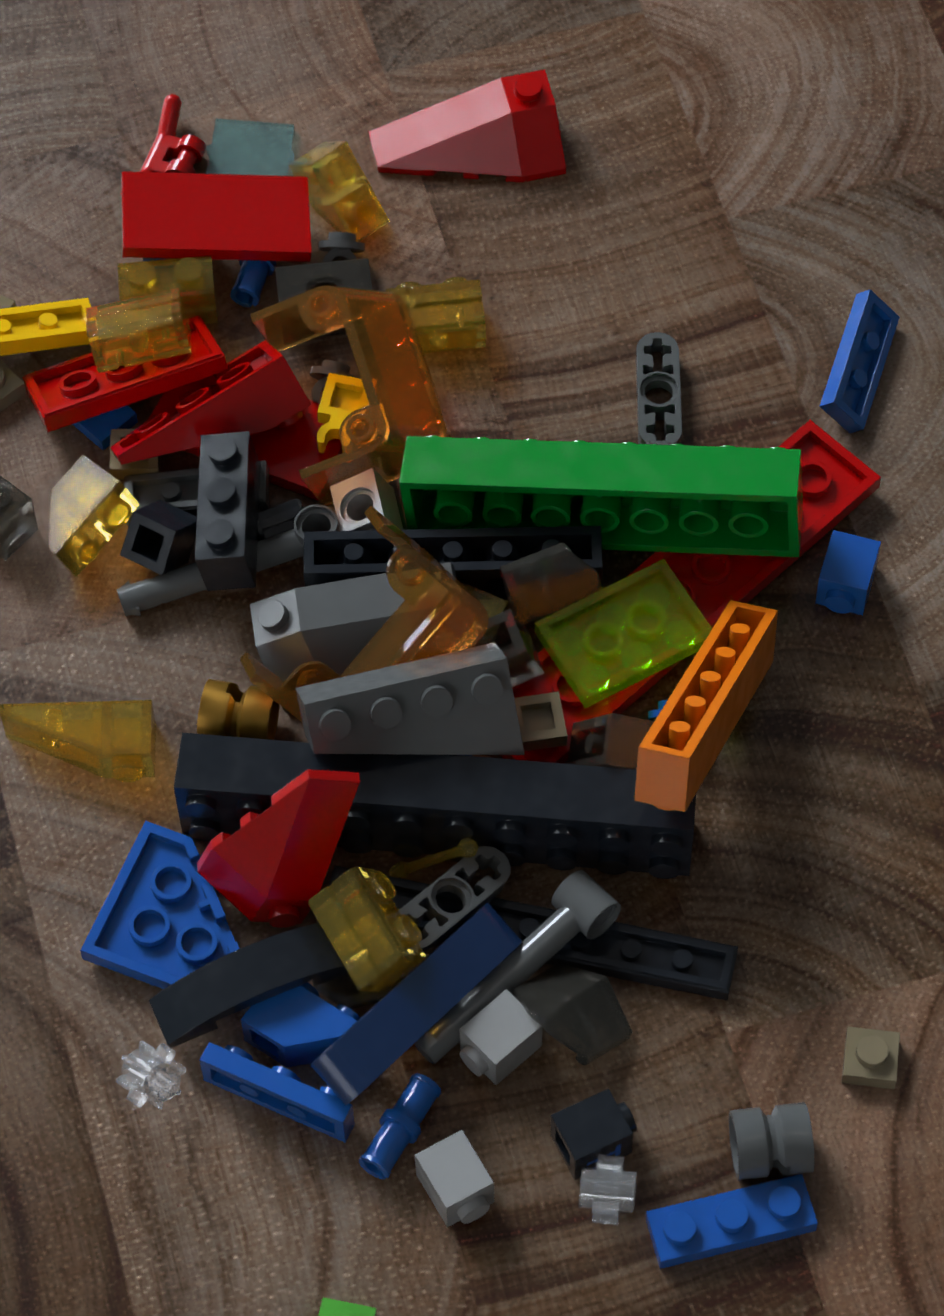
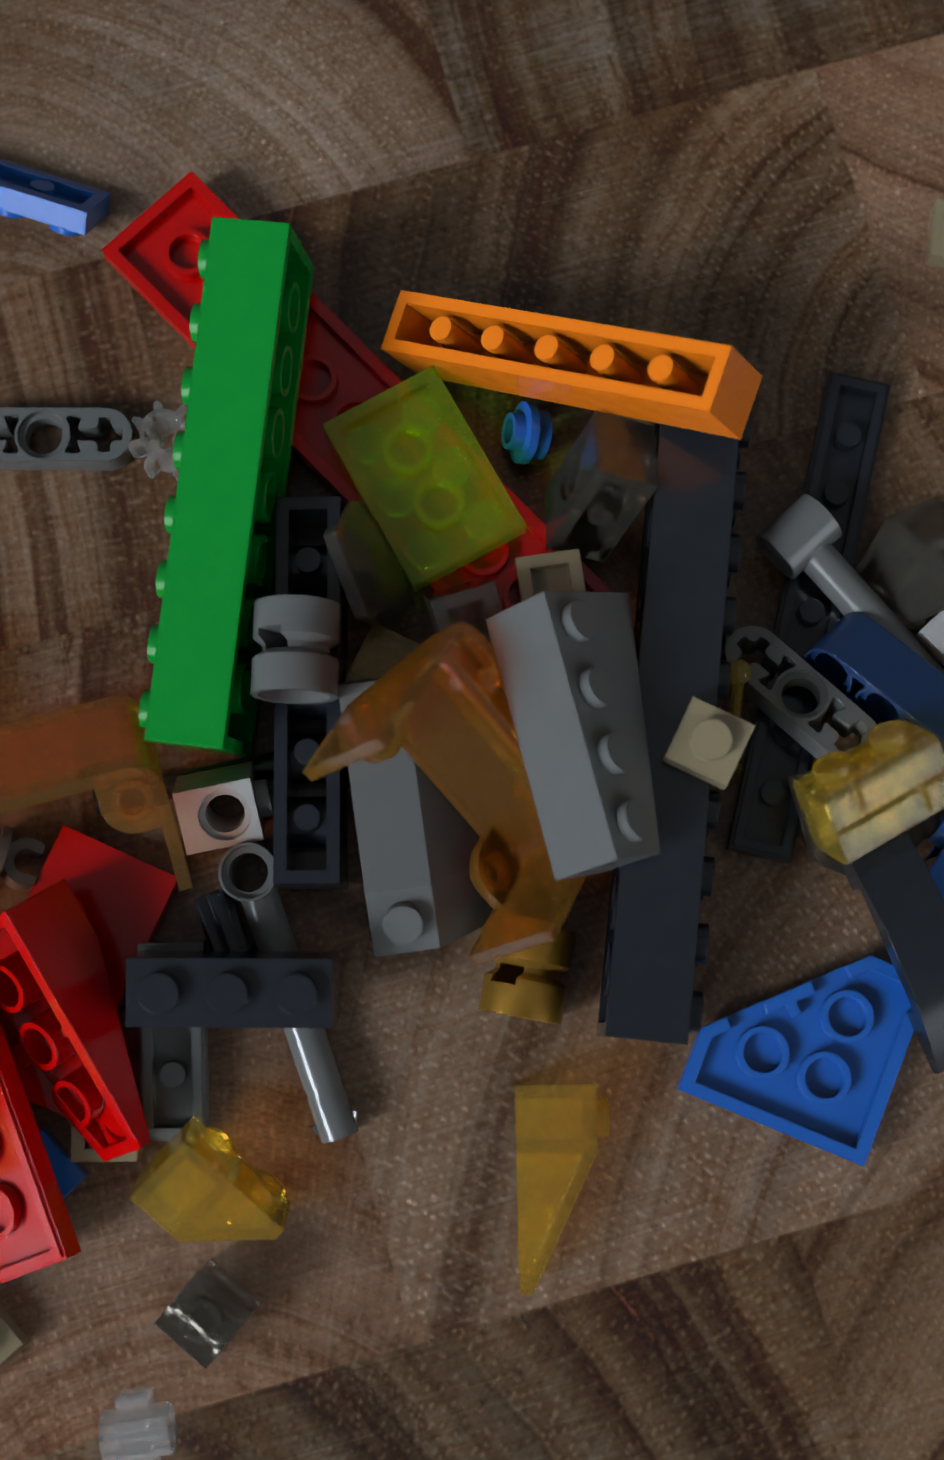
camera: 90 degrees left, 20 degrees up
(160, 537) = (254, 1084): black brick -> none
(283, 852) = (765, 901): red wedge -> none
(339, 399) = (56, 837): yellow plate -> none
(400, 796) = (708, 743): none -> dark tan plate
(473, 527) = (296, 649): none -> dark grey wheel
(847, 573) = (330, 217): blue brick -> none

